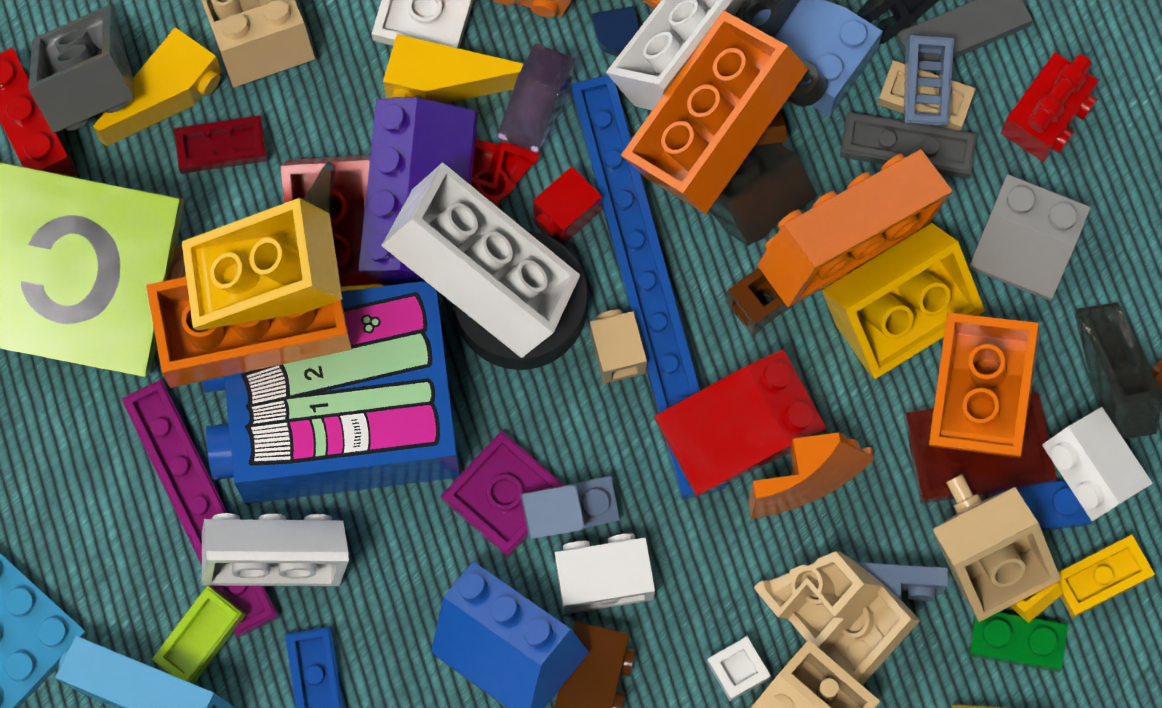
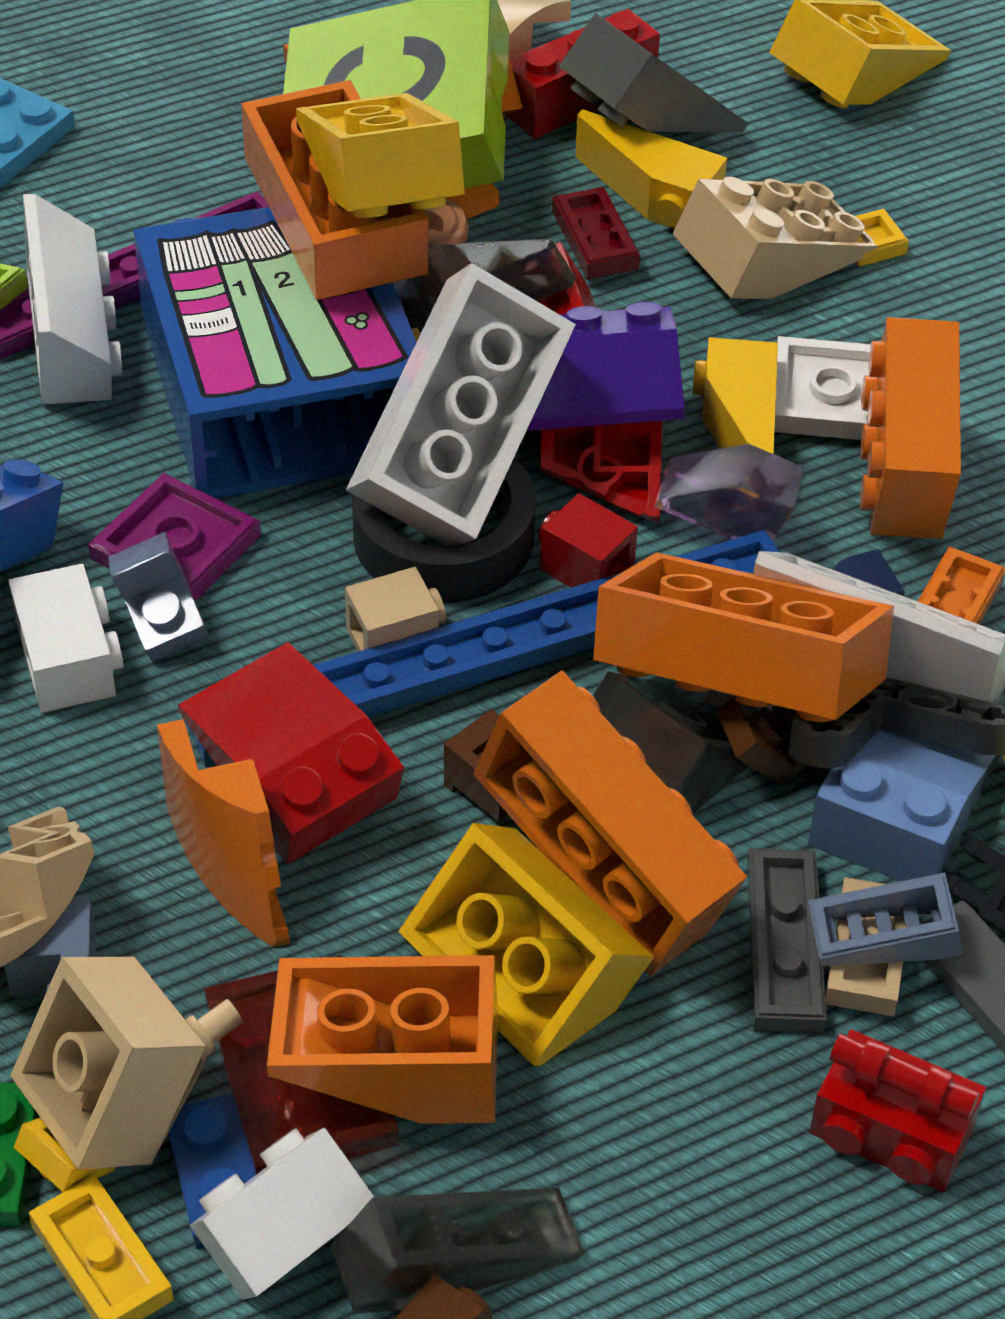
camera: 80 degrees right, 25 degrees down
(1029, 237) = (664, 1101): light grey slope -> none

